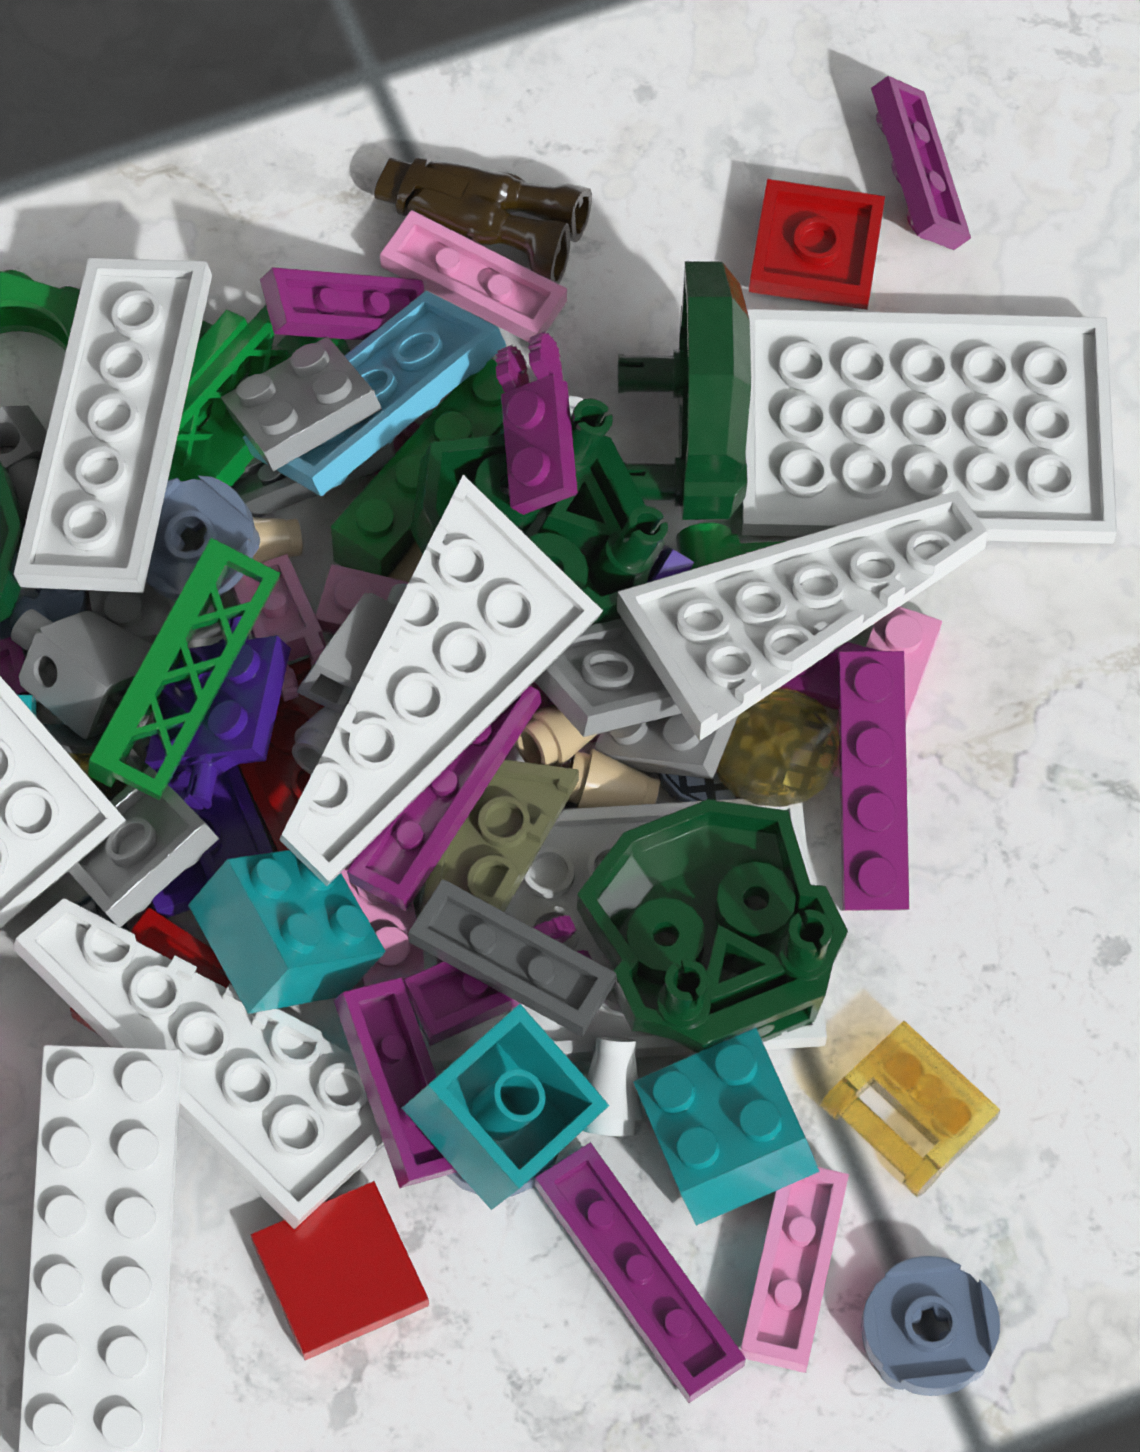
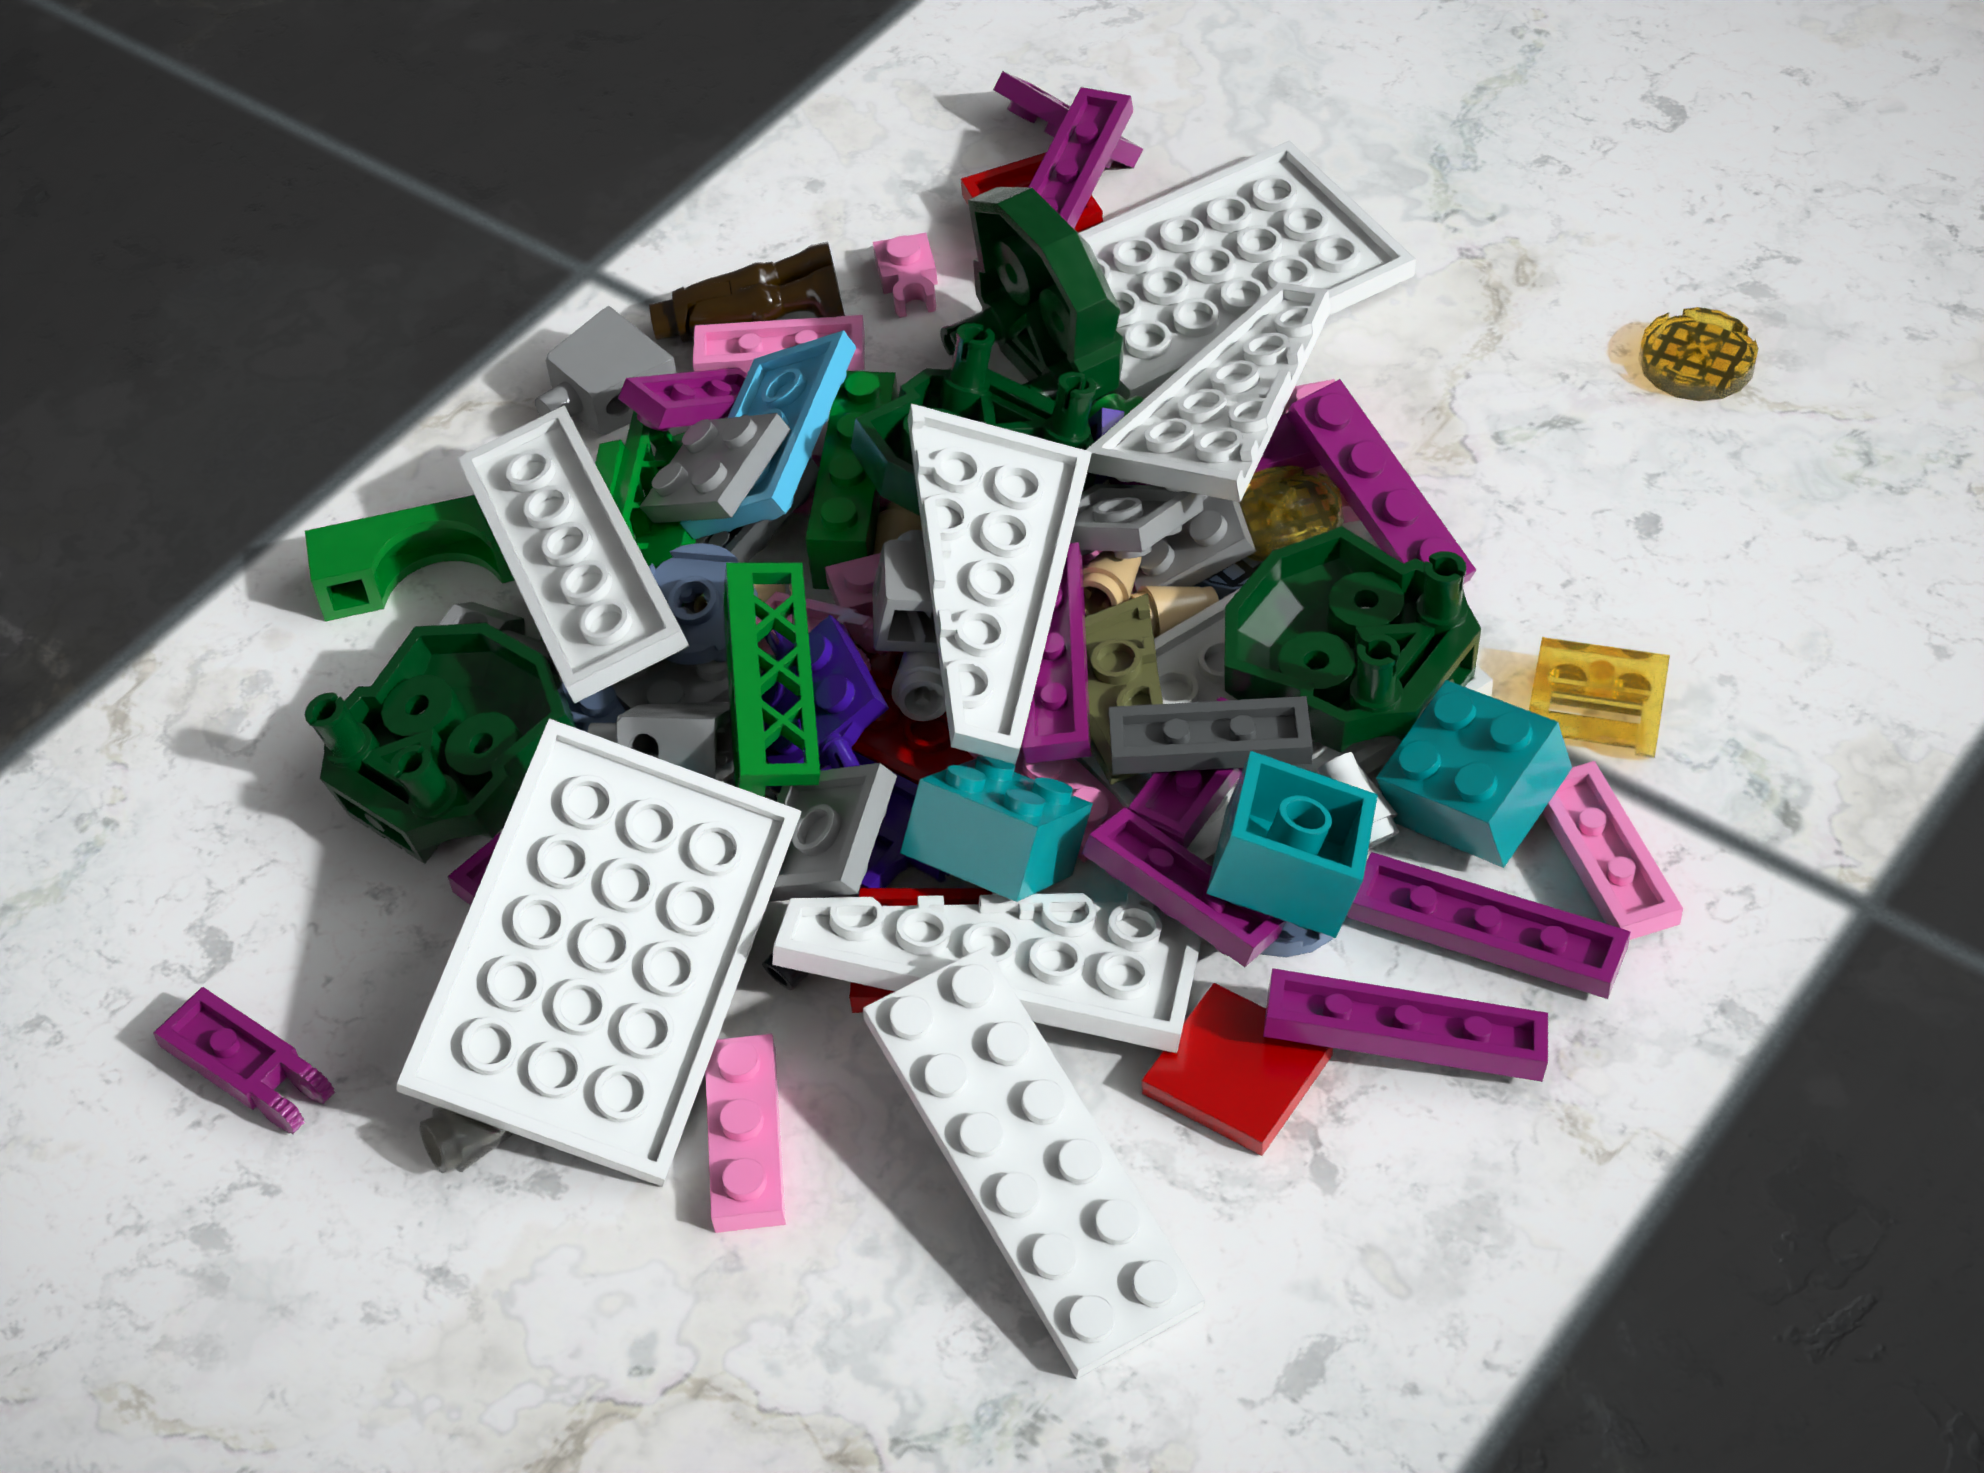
camera: 25 degrees left, 15 degrees down
(298, 217) = (592, 367): none -> light grey torso
(492, 1325) = (1407, 1025): none -> magenta plate
(536, 426) = (934, 366): magenta hinge -> none
(653, 250) = (907, 270): none -> bright pink plate
(851, 247) = (1081, 150): none -> magenta plate
(953, 1296) = (1744, 864): sand blue plate -> none

